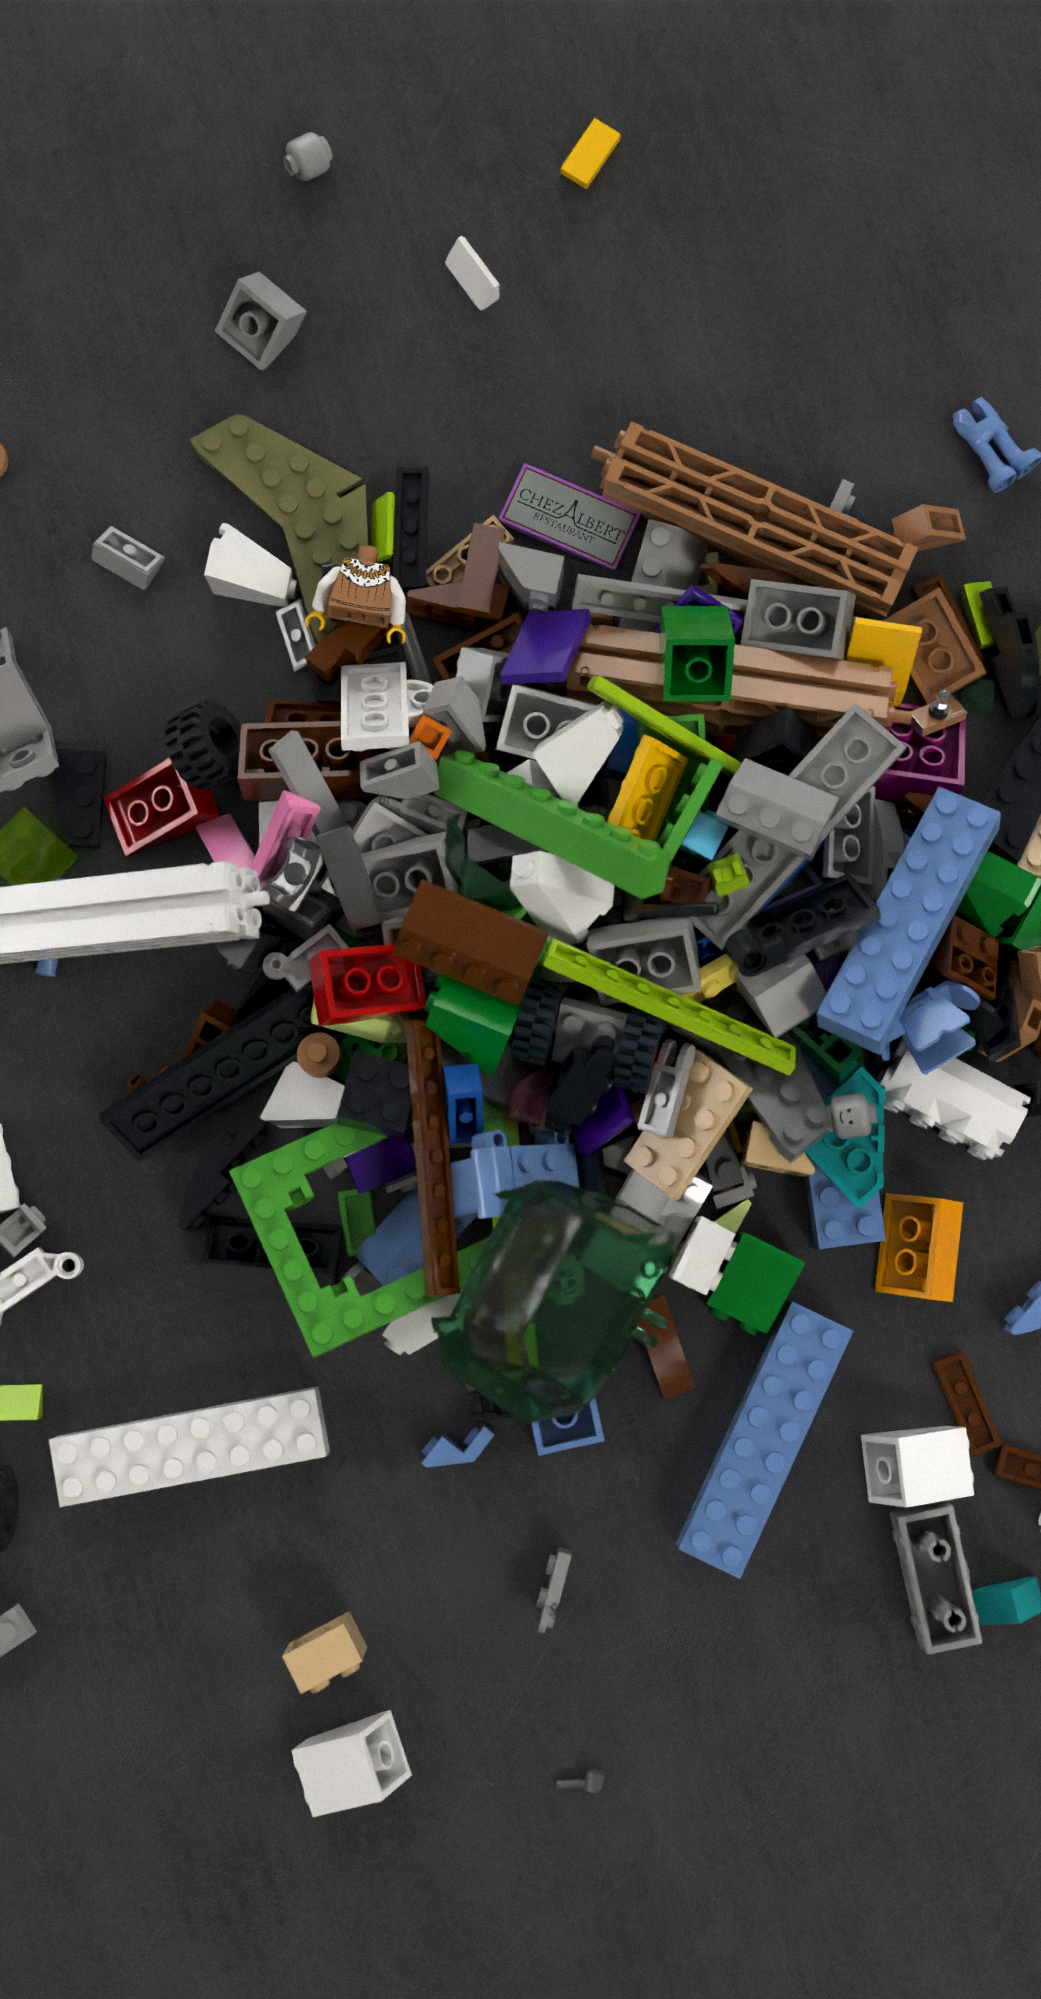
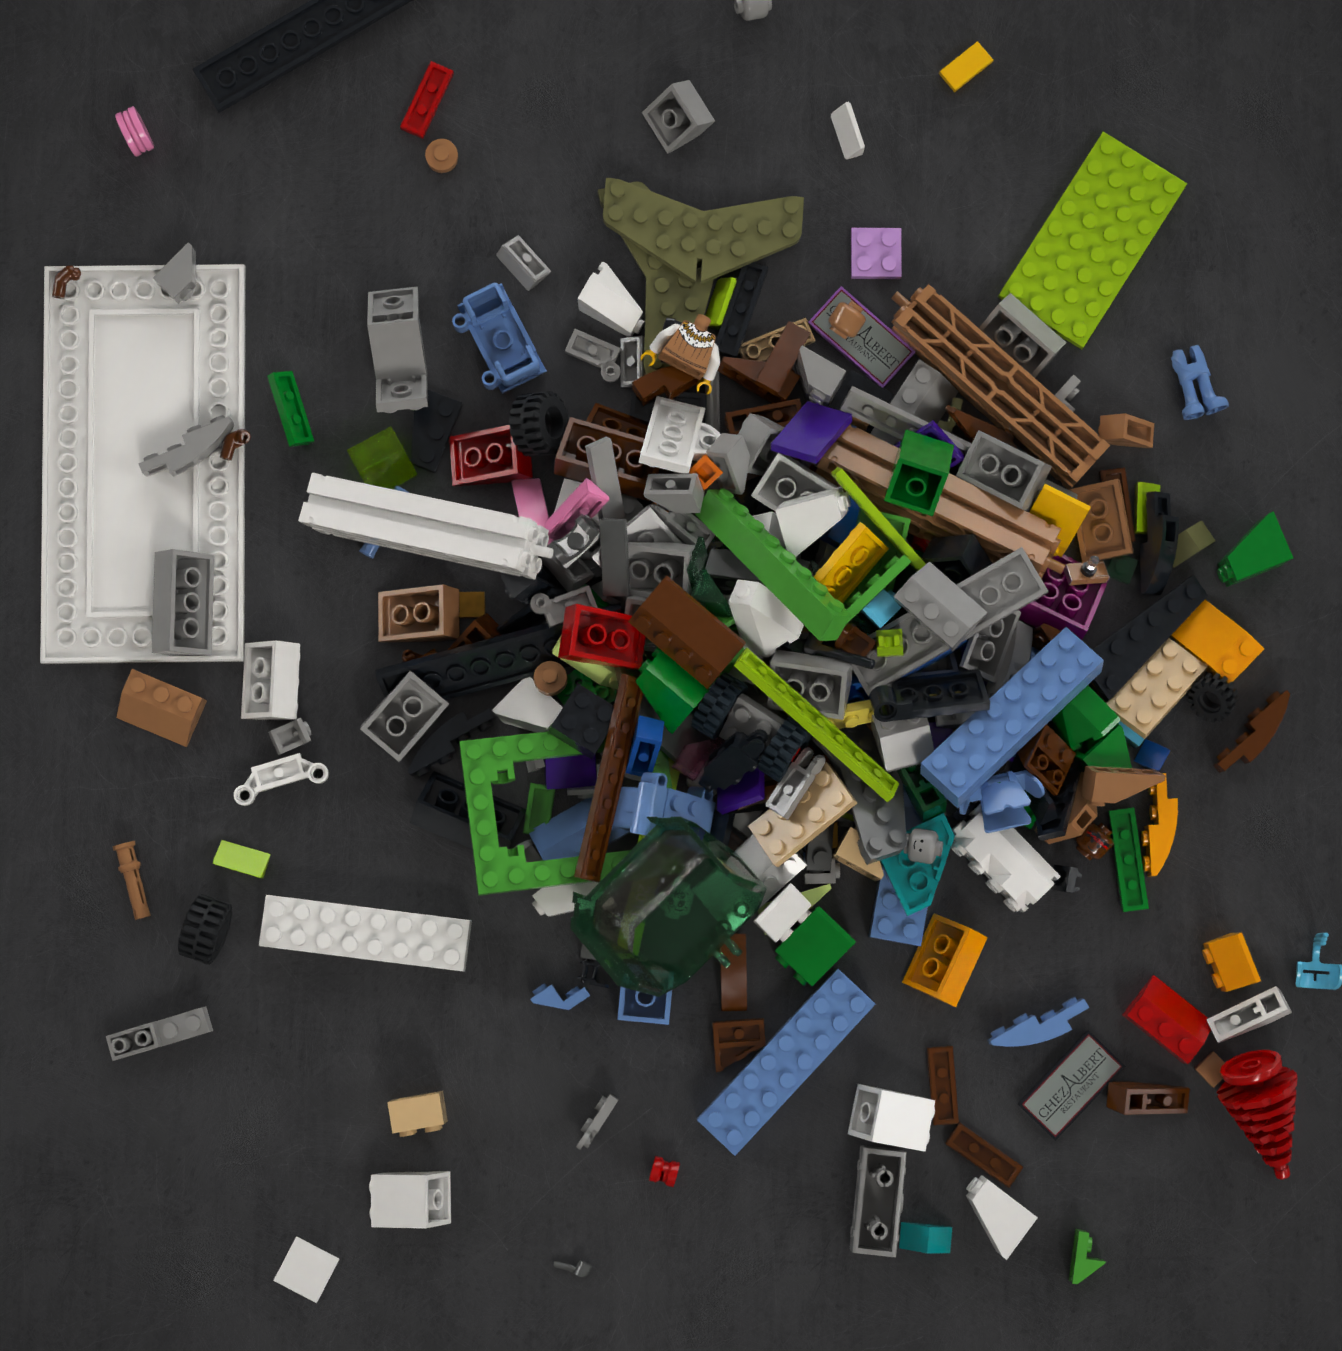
camera: 10 degrees right, 0 degrees up
(124, 655) = (499, 338): none -> medium blue container
(133, 1027) = (419, 614): none -> medium nougat slope
(152, 1160) = (404, 716): none -> light grey slope
(195, 994) = (471, 604): none -> pearl gold tile
(249, 1893) = (306, 1269): none -> white sticker
(250, 638) = (596, 353): none -> light grey hinge
(316, 459) = (685, 235): none -> olive wing
(545, 499) = (847, 319): none -> medium nougat head
(554, 410) = (876, 253): none -> lavender plate
(657, 1624) = (664, 1171): none -> red wheel
(694, 1429) = (736, 1039): none -> reddish brown wing
(765, 449) = (1022, 335): none -> light grey slope
(811, 313) = (1093, 239): none -> lime plate

